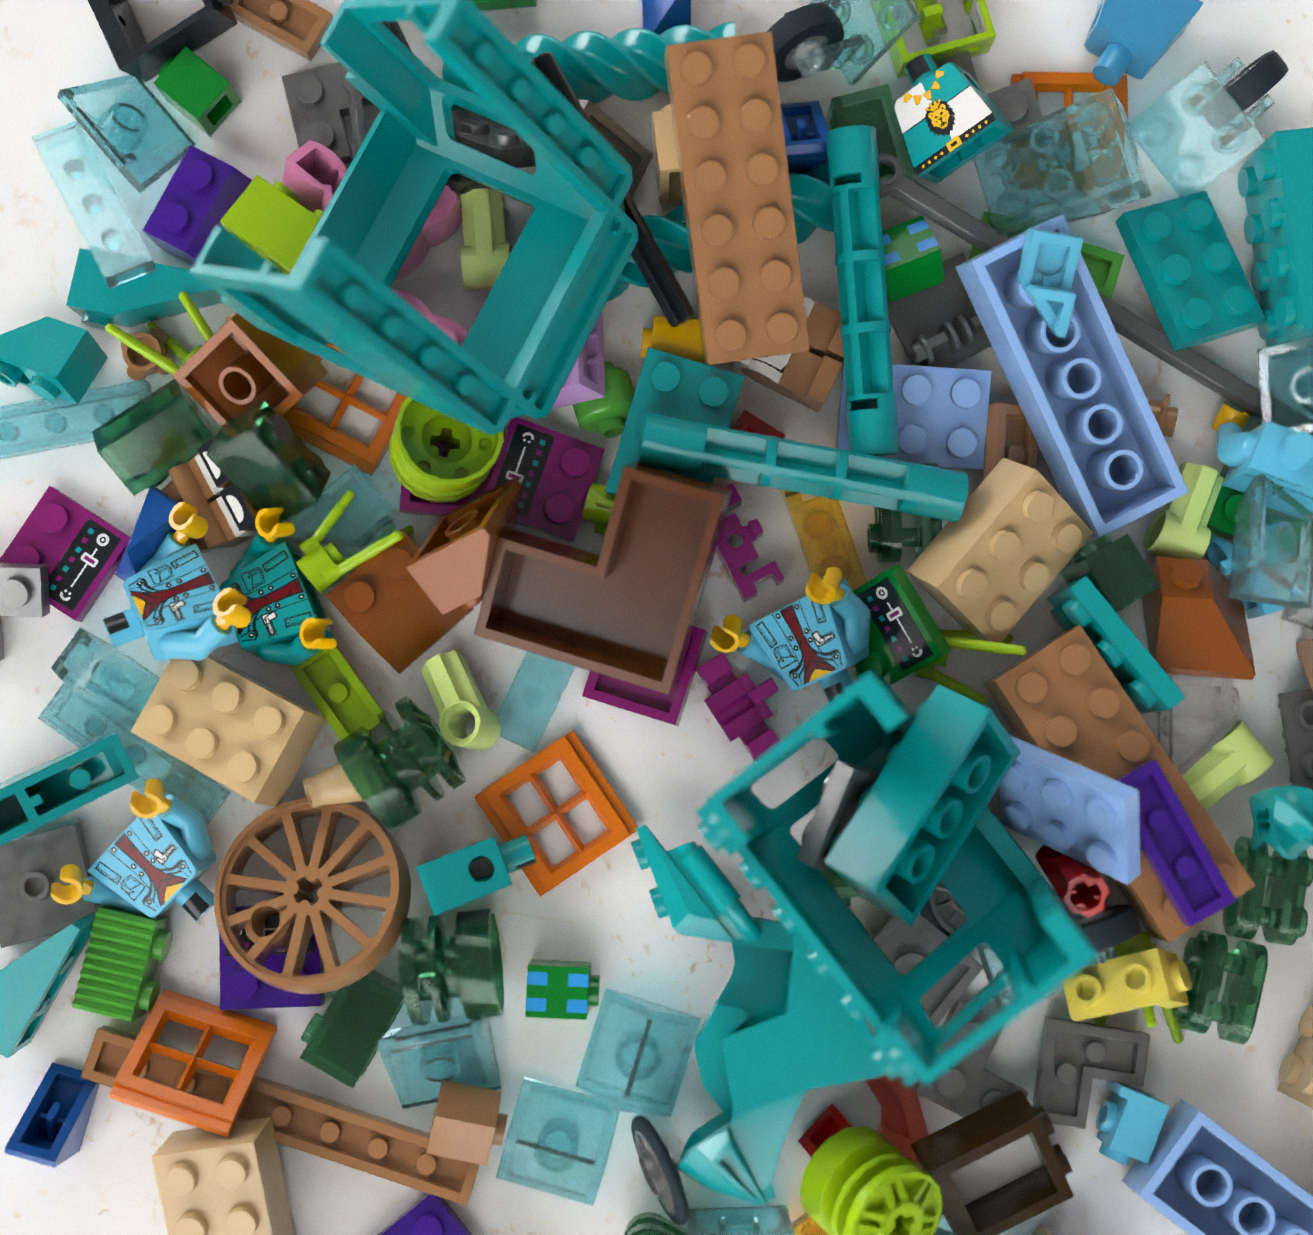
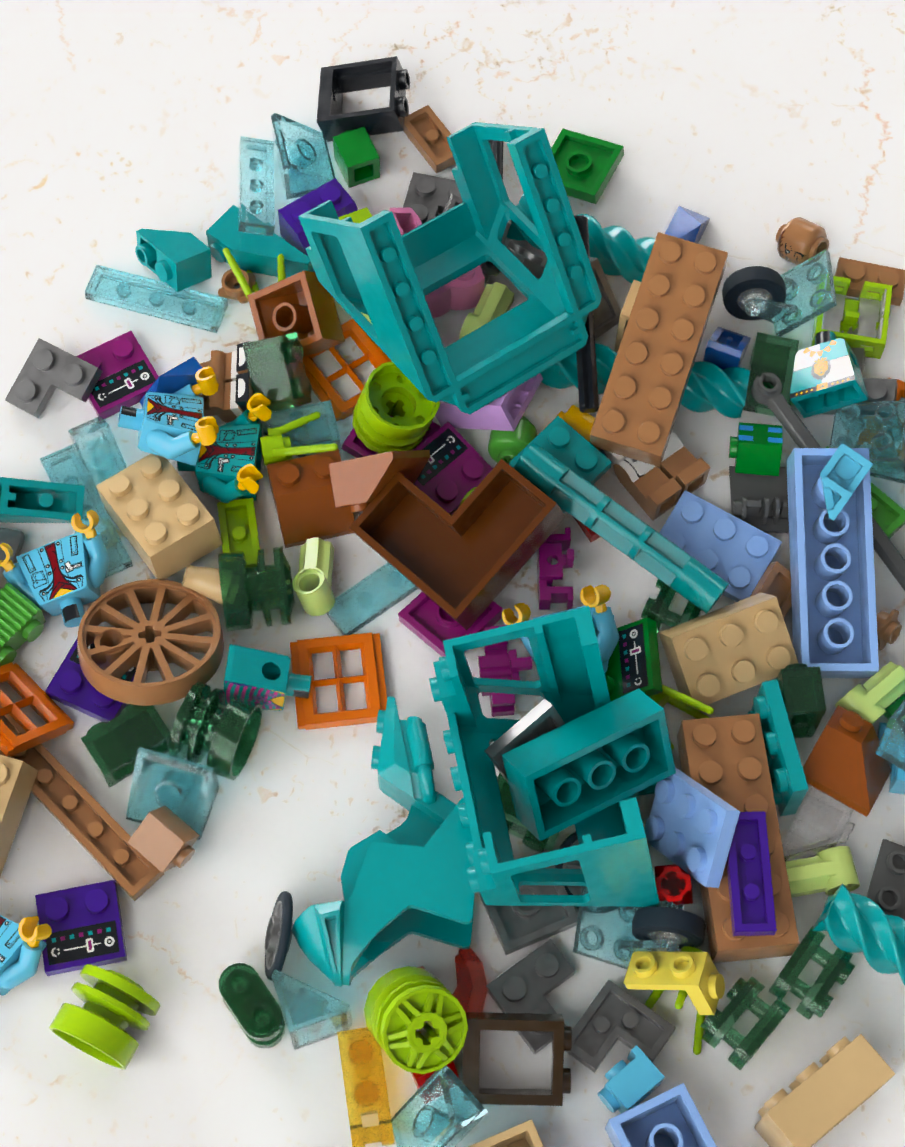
camera: 25 degrees right, 20 degrees down
(153, 437) = (212, 329): clear green brick -> none
(558, 1141) = (216, 893): clear light blue slope -> none
(560, 989) = (277, 789): green brick -> none
(637, 1054) = (305, 860): clear light blue slope -> none
(824, 537) = (621, 582): clear yellow plate -> none
(862, 290) = (723, 427): teal piece -> none

